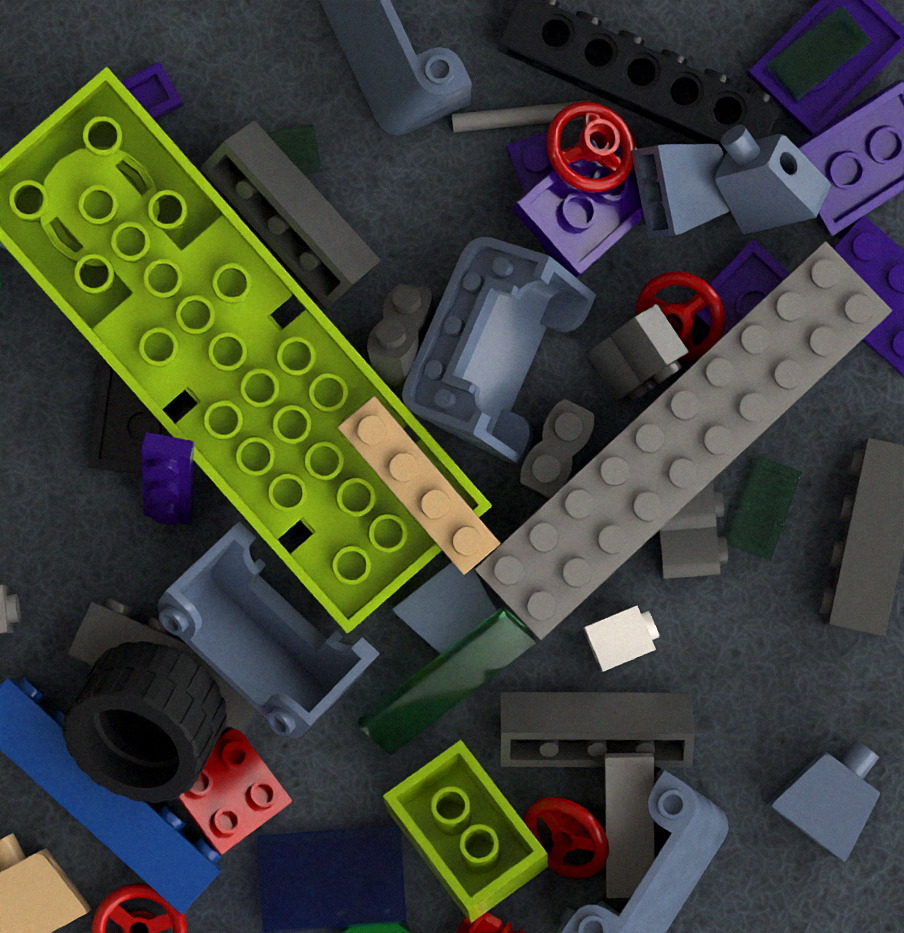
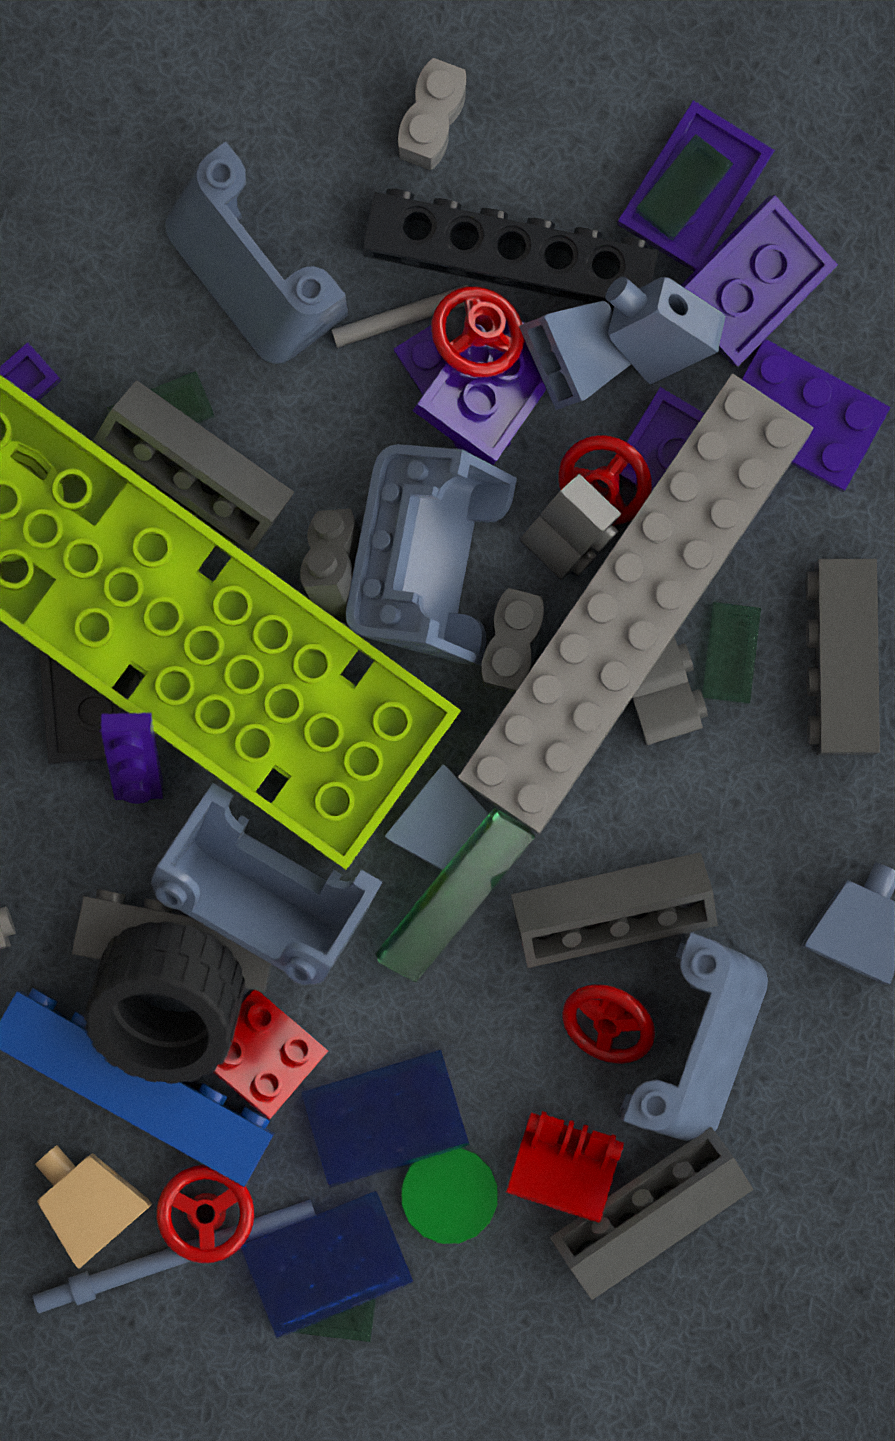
camera: 15 degrees left, 0 degrees up
(418, 485) = (383, 706): tan plate -> none
(466, 831) = (507, 1039): lime brick -> none
(621, 637) = (618, 813): white brick -> none
(628, 821) = (666, 992): light grey tile -> none

